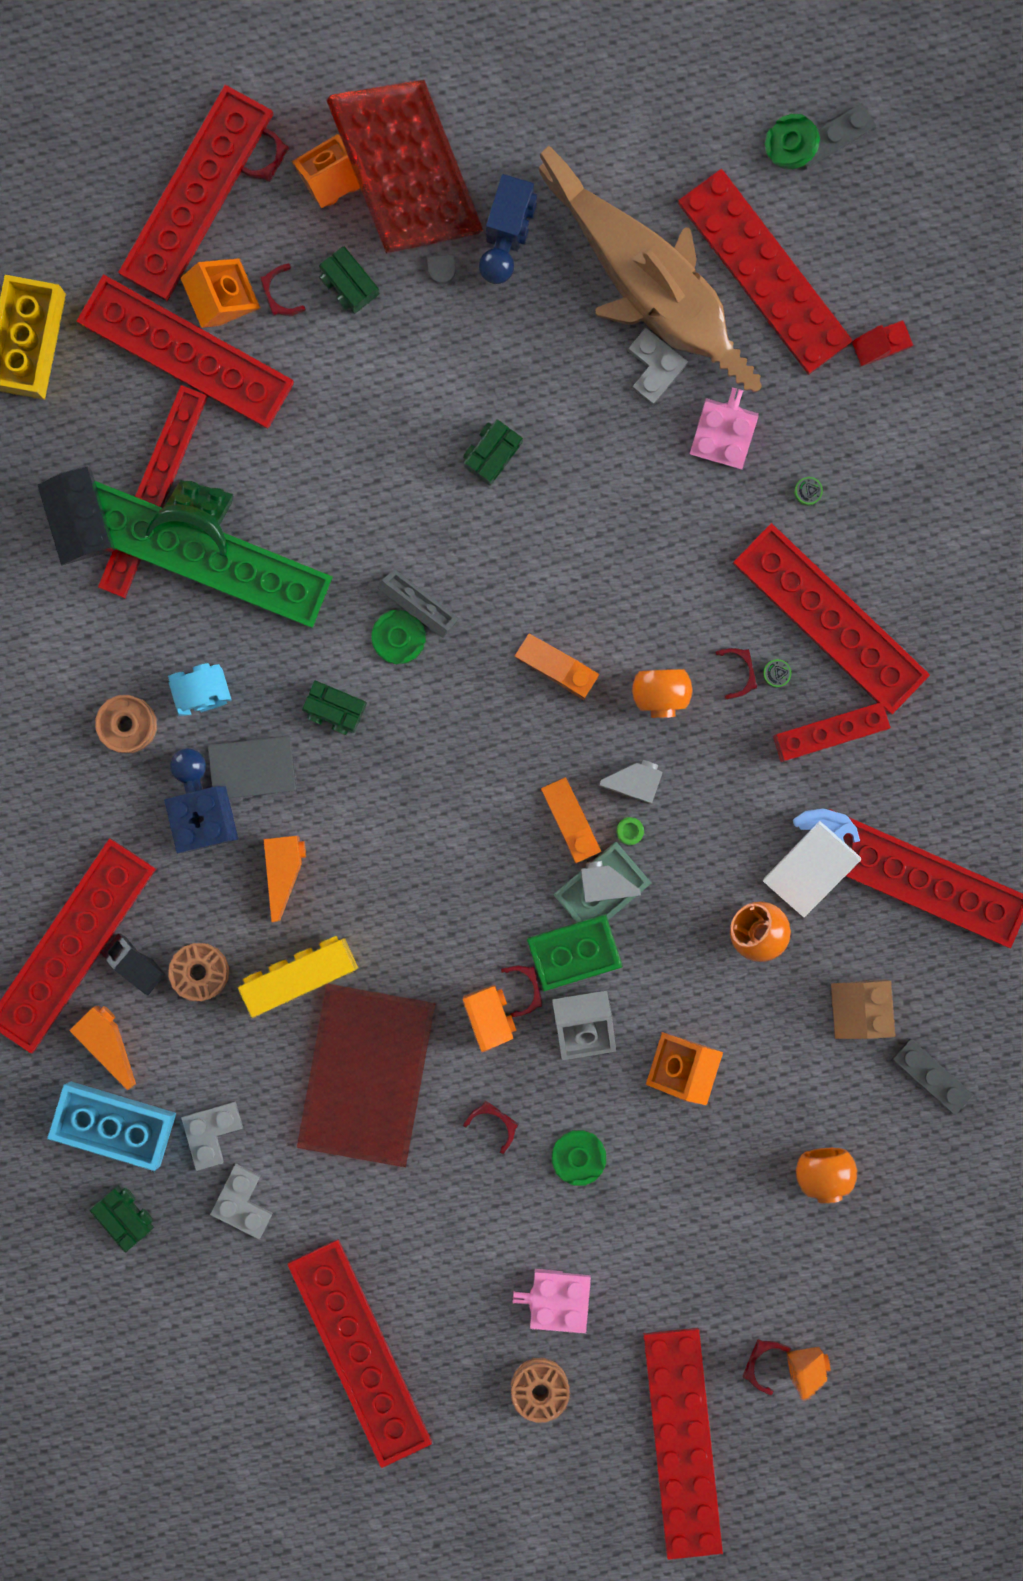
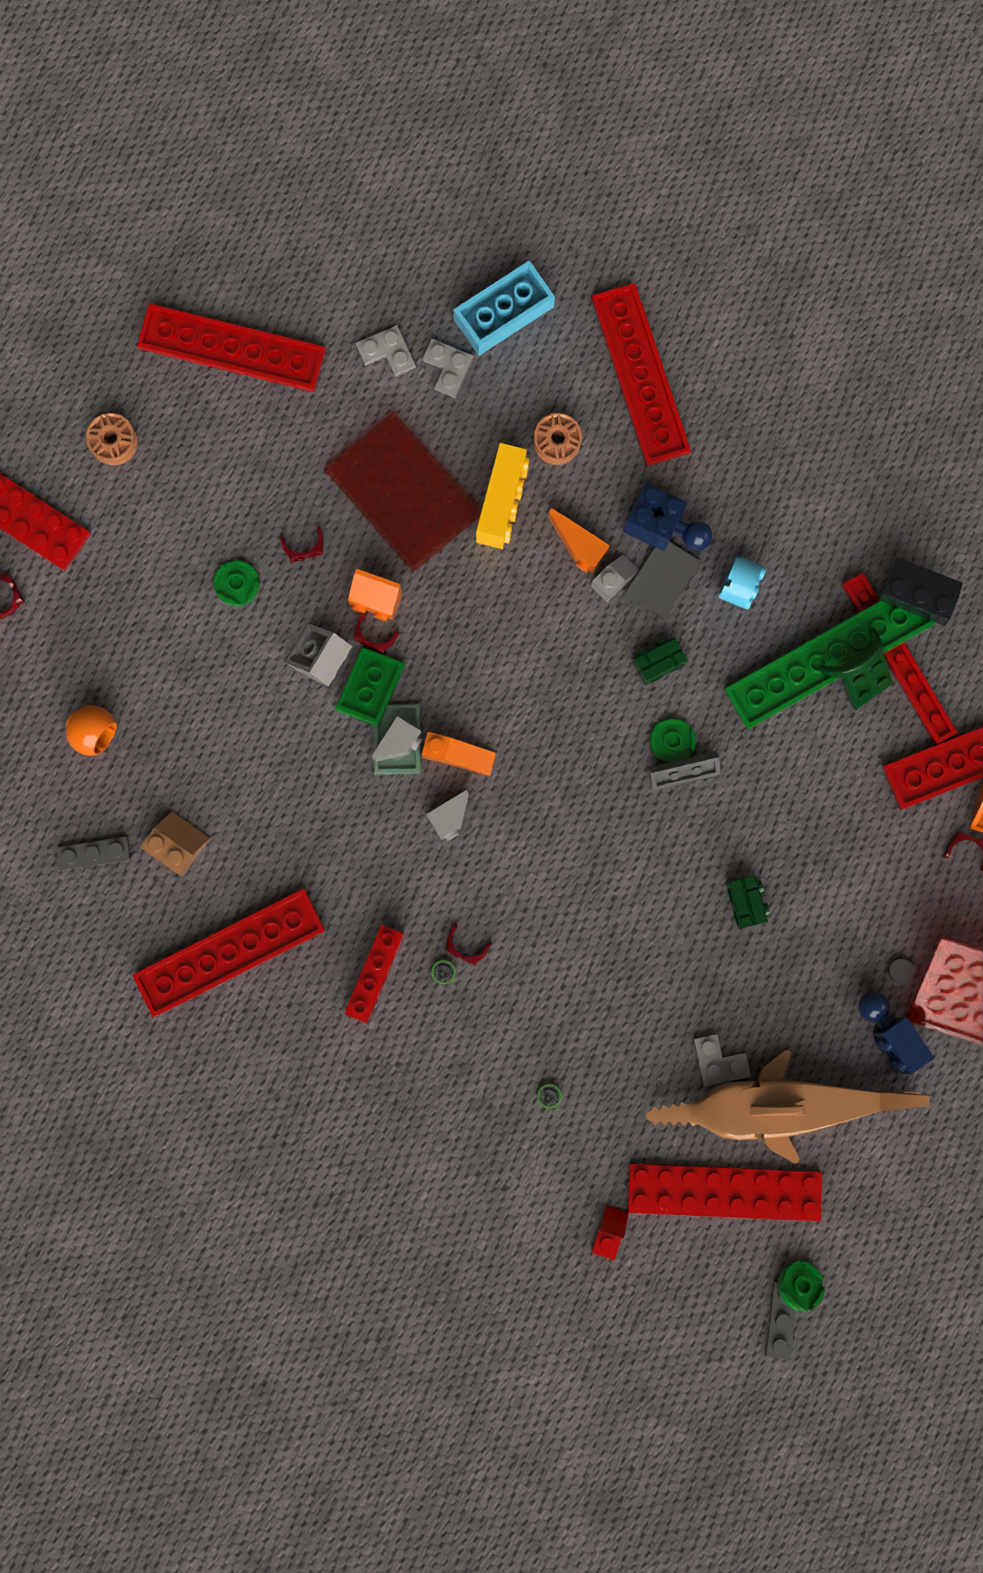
camera: 125 degrees right, 5 degrees down
(103, 1040) = (563, 345): orange slope -> none
(109, 724) = (762, 507): nougat wheel -> none
(122, 1218) = (440, 270): dark green brick -> none
(133, 965) = (593, 401): black slope -> none
(288, 811) = (614, 577): none -> light grey slope
(348, 279) = (942, 901): dark green brick -> none
(557, 666) = (567, 828): orange slope -> none
(557, 1301) = (158, 494): bright pink plate -> none
(630, 831) = (419, 788): bright green tile -> none
(662, 691) = (494, 882): orange wheel -> none
(684, 1069) = (235, 695): orange slope -> none
(724, 431) = (636, 1071): bright pink plate -> none
(760, 931) = (282, 815): orange wheel -> none
(812, 869) = (294, 885): white tile -> none
(831, 619) = (450, 1038): red plate -> none
(835, 821) = (315, 923): light blue piece -> none

